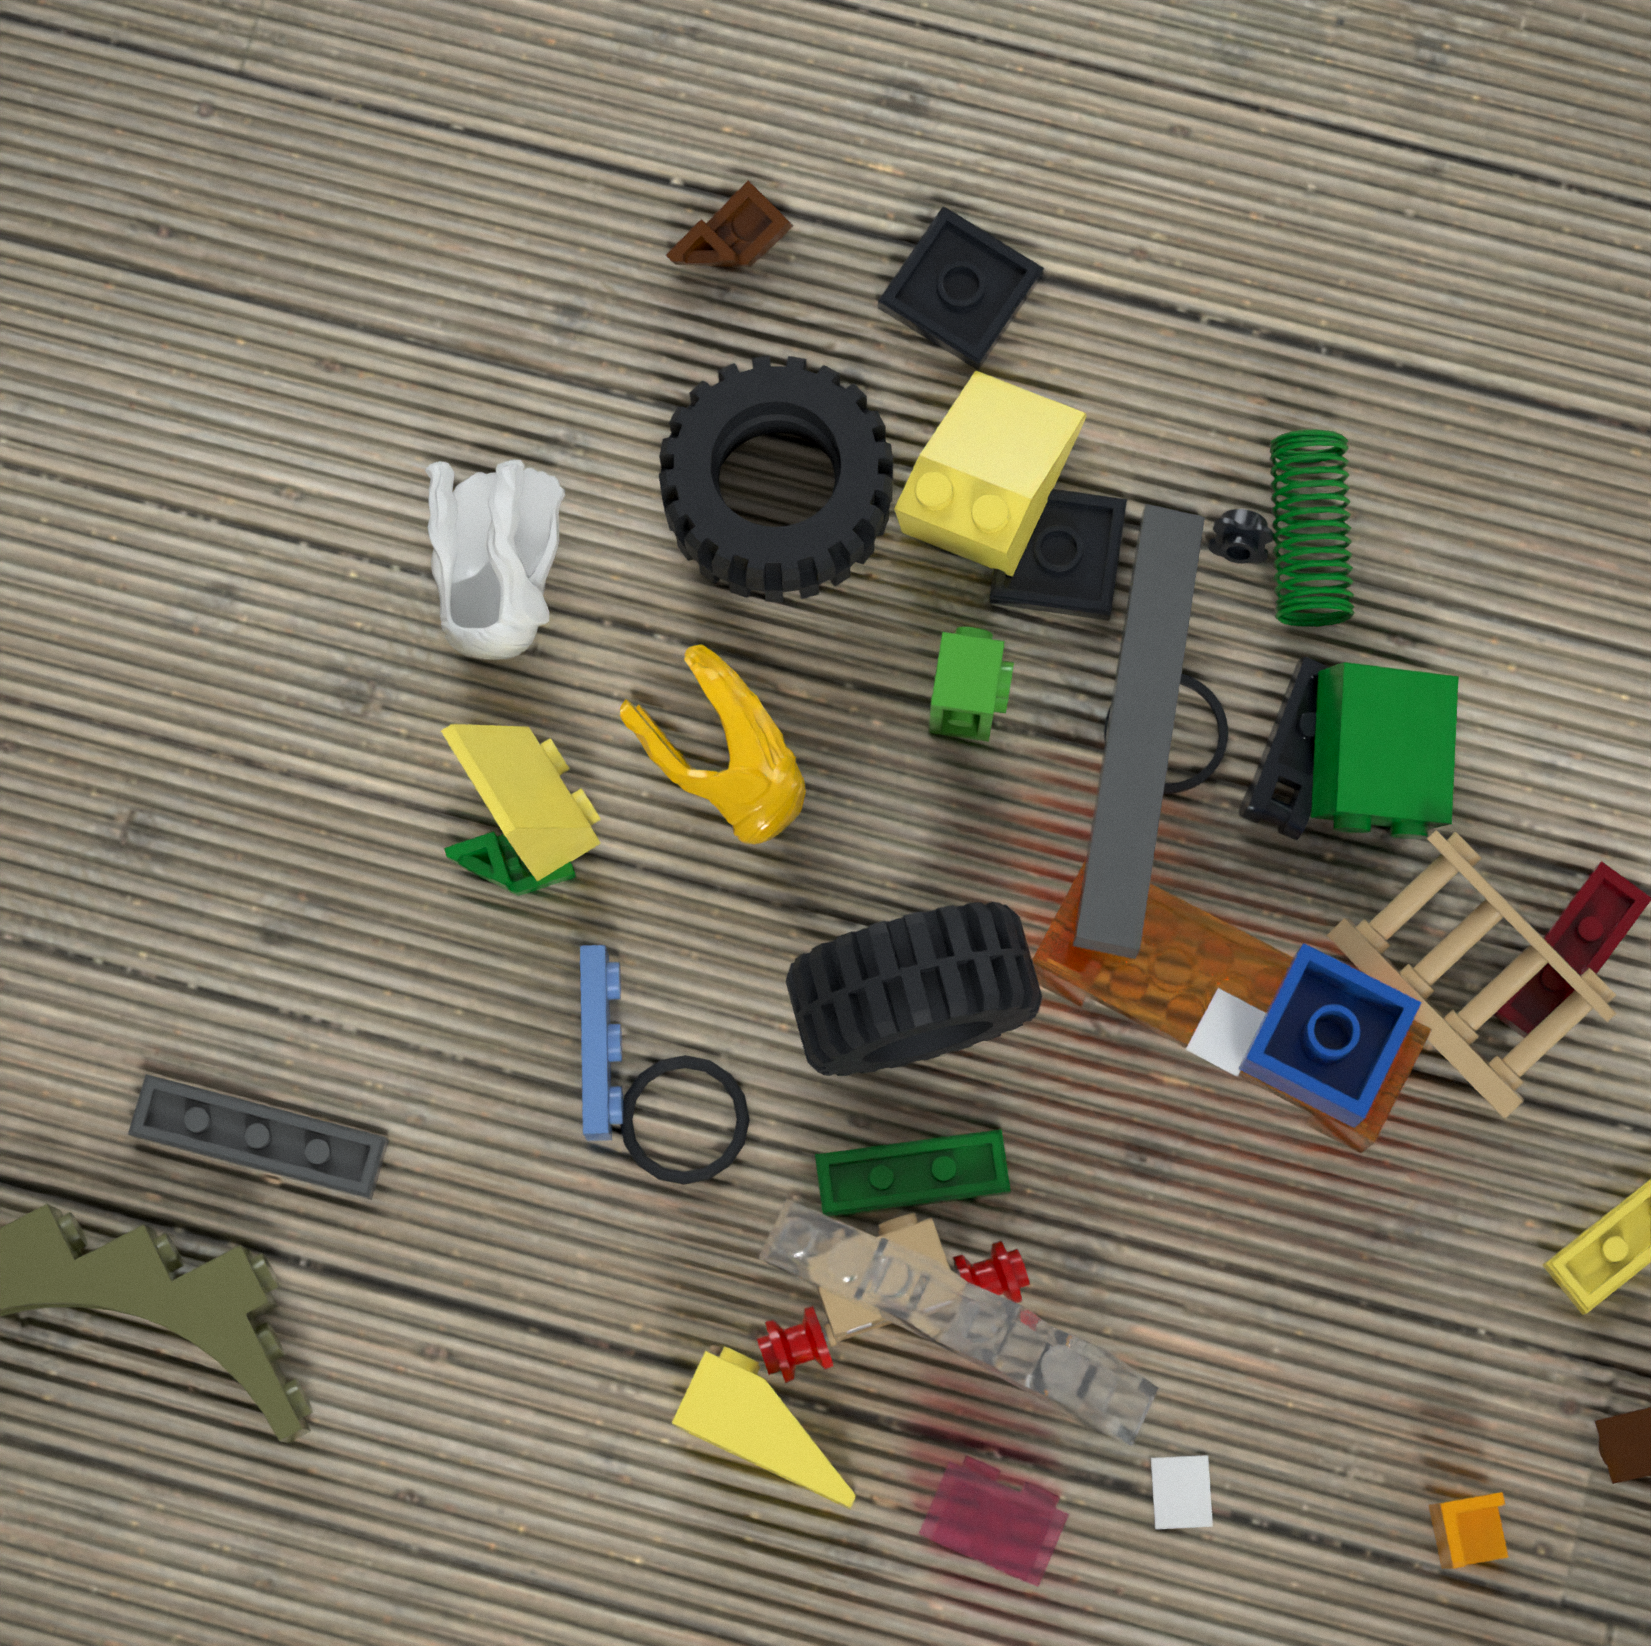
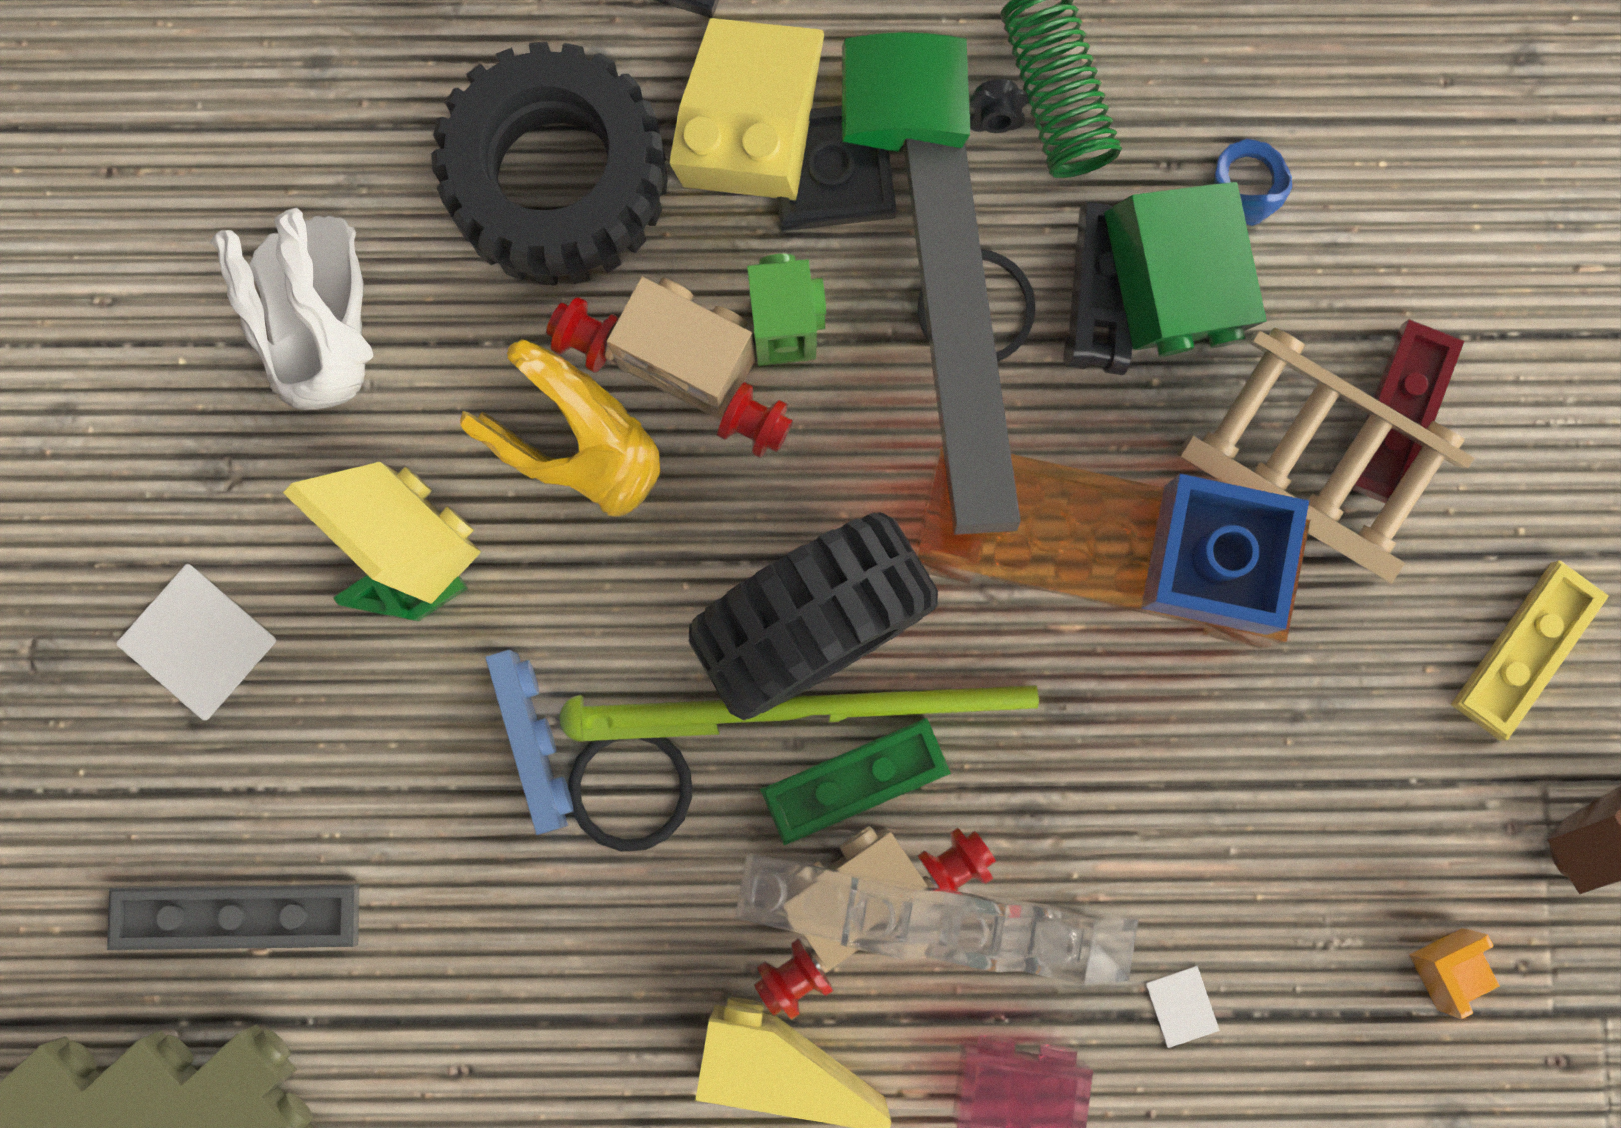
camera: 20 degrees left, 5 degrees up
(293, 856) = (196, 642): none -> white sticker
(777, 1066) = (701, 717): none -> lime bar
(854, 699) = (680, 351): none -> tan brick
(1151, 495) = (905, 89): none -> green slope
(1226, 1031) = (1119, 575): white sticker -> none
(1478, 708) = (1257, 207): none -> blue piece

